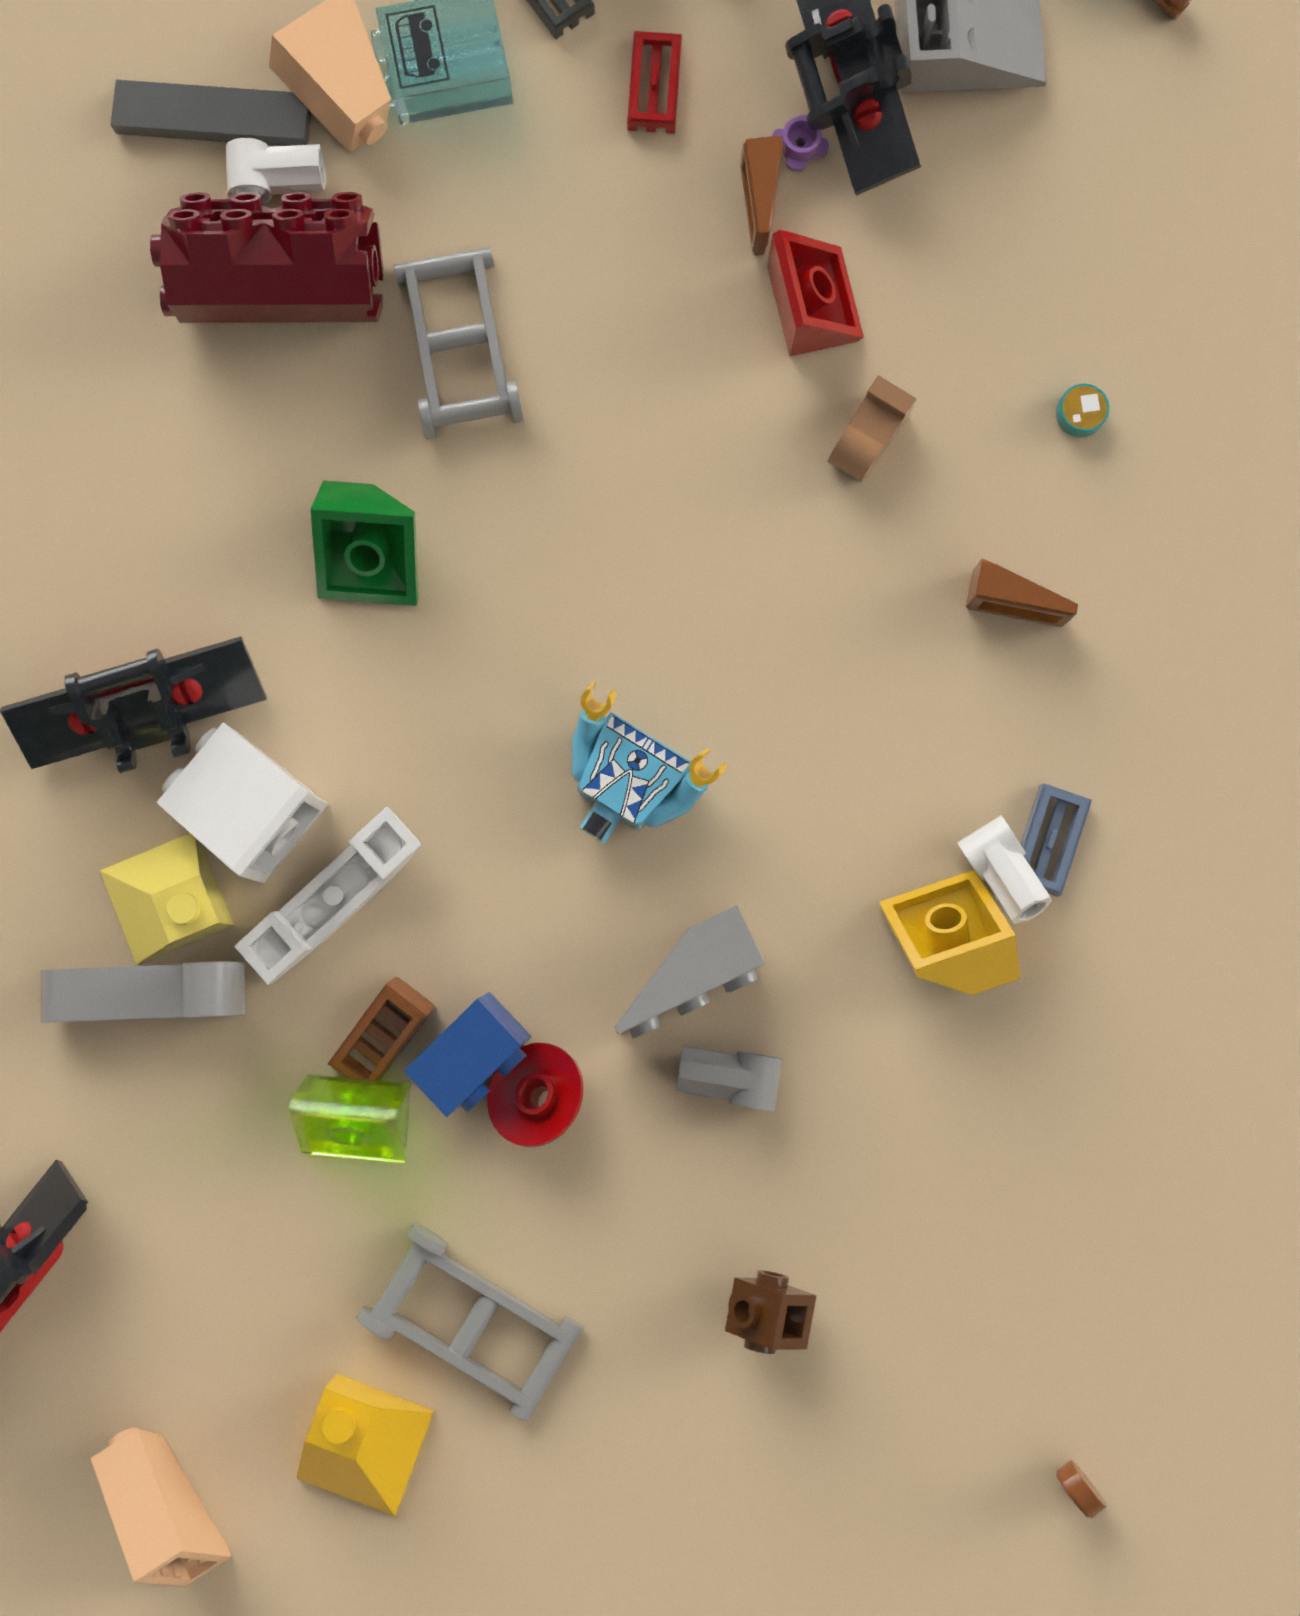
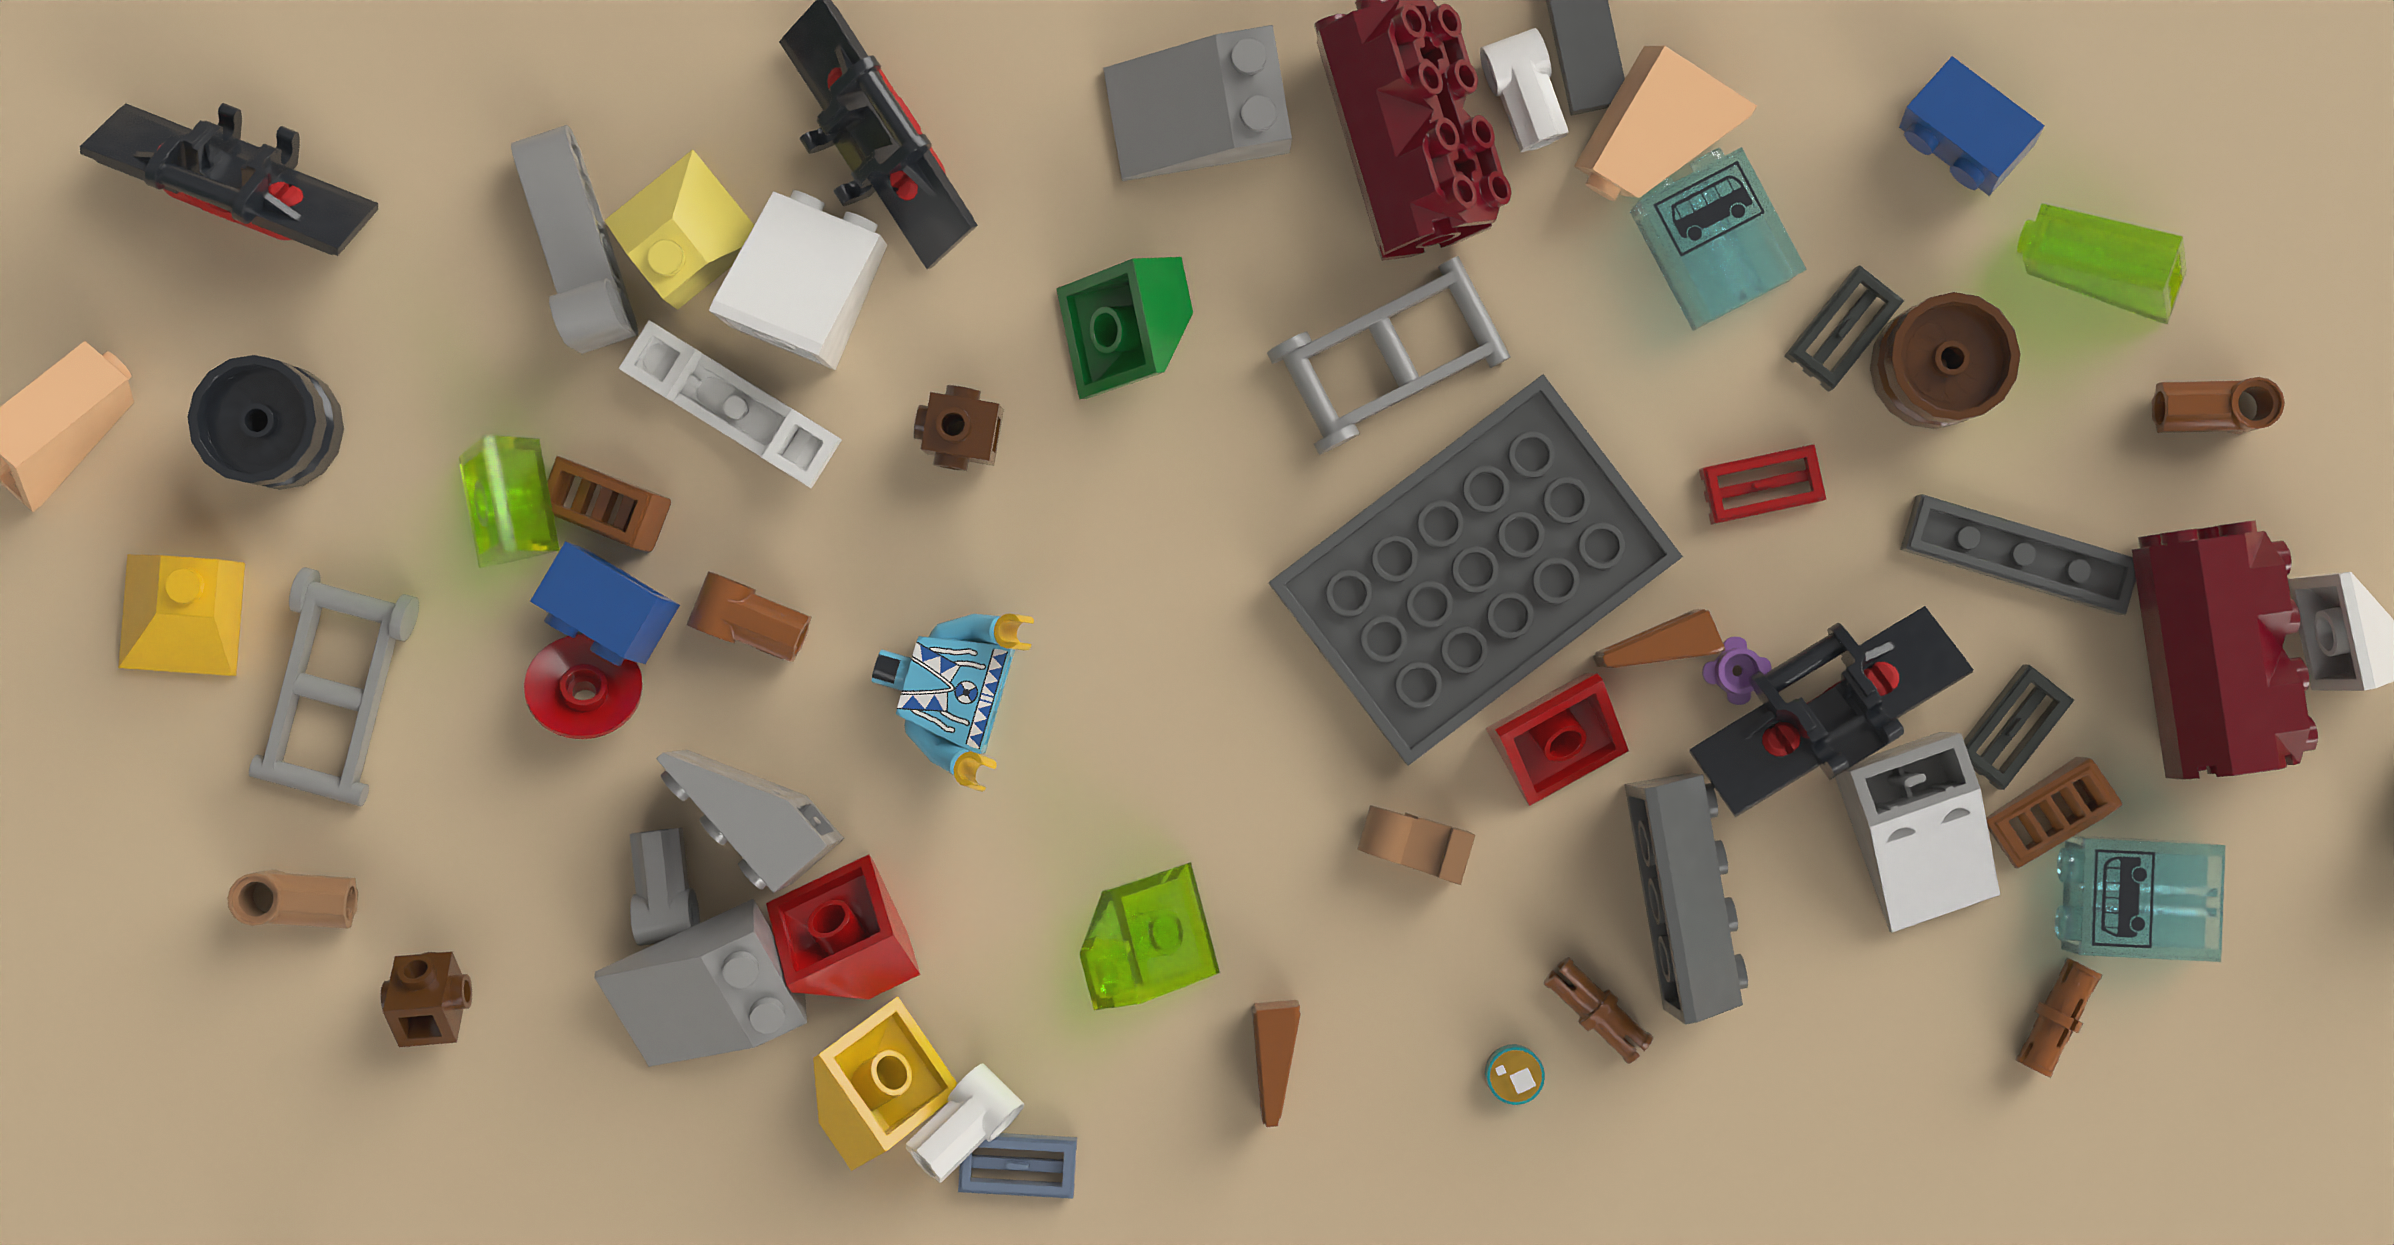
camera: 80 degrees right, 5 degrees up
(193, 1336) = (265, 422): none -> black wheel
(200, 431) = (1199, 105): none -> light grey slope
(403, 689) = (977, 440): none -> reddish brown brick
(511, 944) = (736, 613): none -> dark orange piece
(649, 1406) = (296, 899): none -> medium nougat piece
(657, 323) = (1475, 570): none -> dark grey plate
(814, 929) = (842, 935): none -> red slope
(831, 1061) = (705, 990): none -> light grey slope
(892, 674) = (1147, 940): none -> clear neon green slope
(974, 230) = (1686, 896): none -> dark grey slope
(1047, 328) = (1598, 1010): none -> dark orange pin

